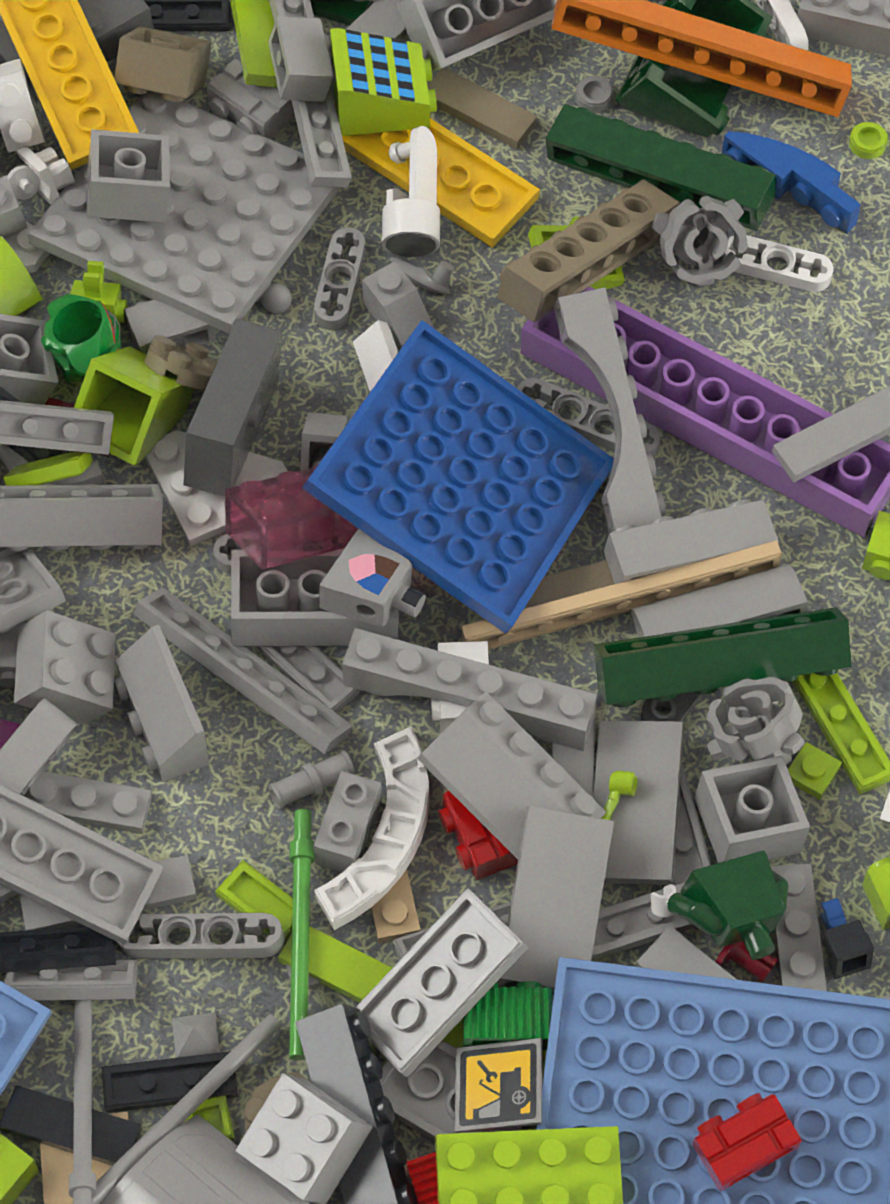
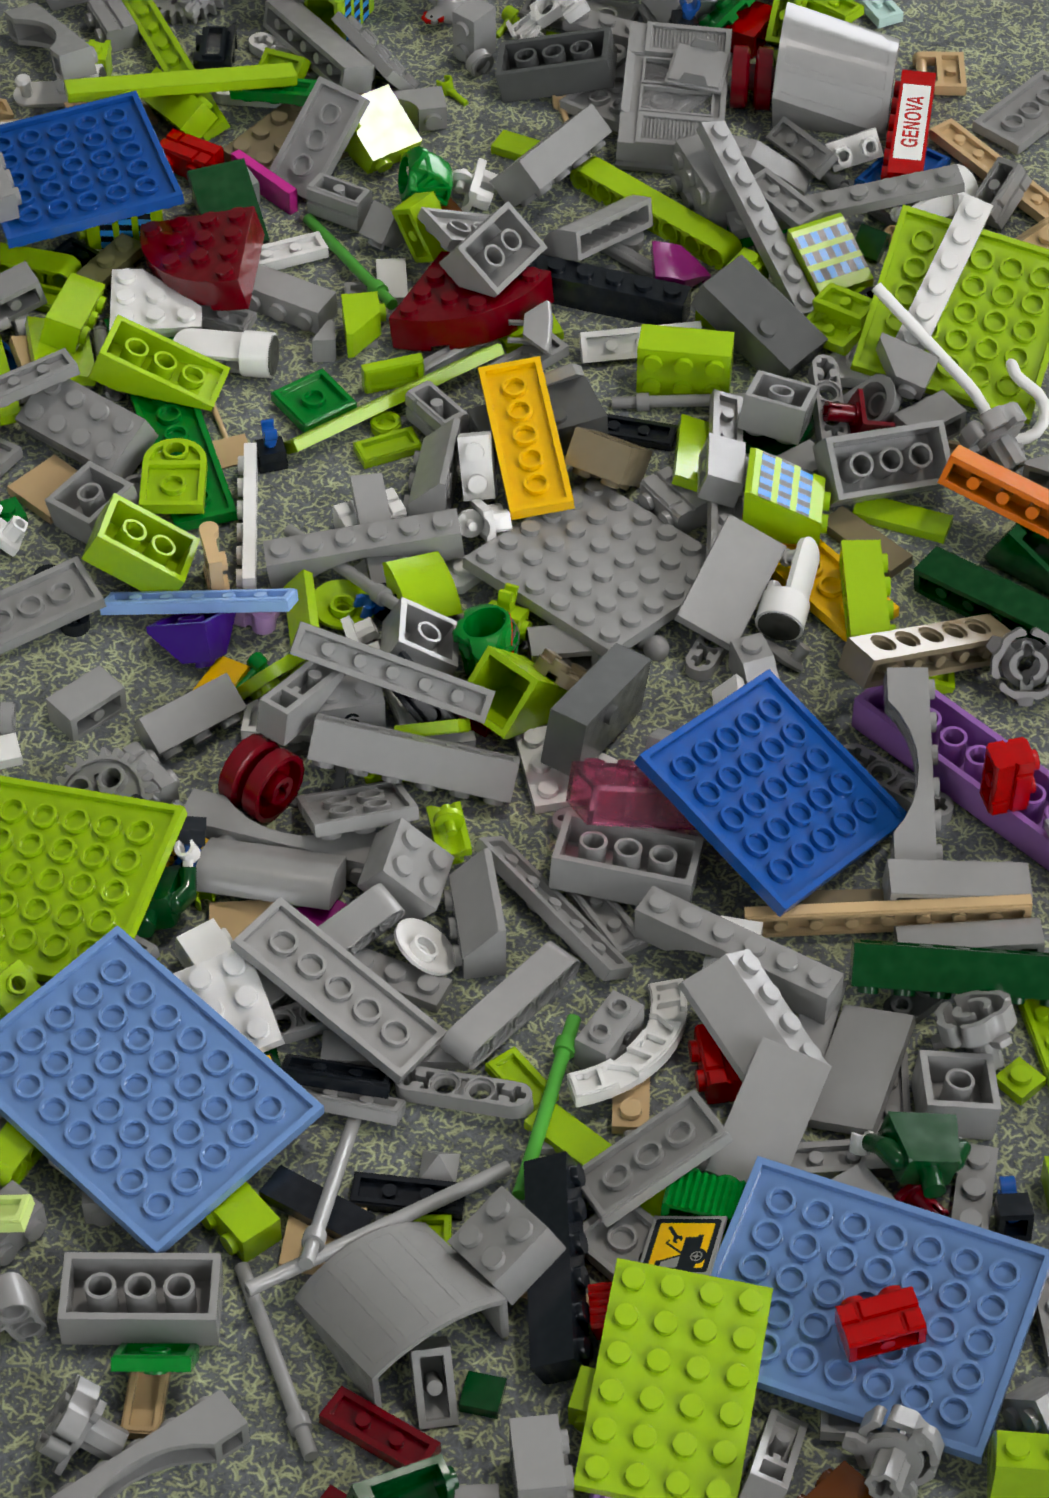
camera: 15 degrees right, 15 degrees down
(100, 597) = (450, 830): none -> lime hips
(109, 756) = (424, 946): none -> white dish
(128, 176) = (555, 526): light grey brick -> none
(226, 812) = (510, 1005): none -> light grey beam
(310, 779) = (585, 999): light grey pin -> none
(344, 203) = (730, 582): none -> light grey tile
(369, 583) = (672, 851): light grey torso -> none
(501, 187) = (865, 587): none -> lime brick
(516, 68) = (905, 518): none -> lime tile
(594, 94) = (967, 547): light grey tile -> none
(619, 784) = (849, 1050): lime hand -> none
(723, 403) = (1008, 775): none -> red brick

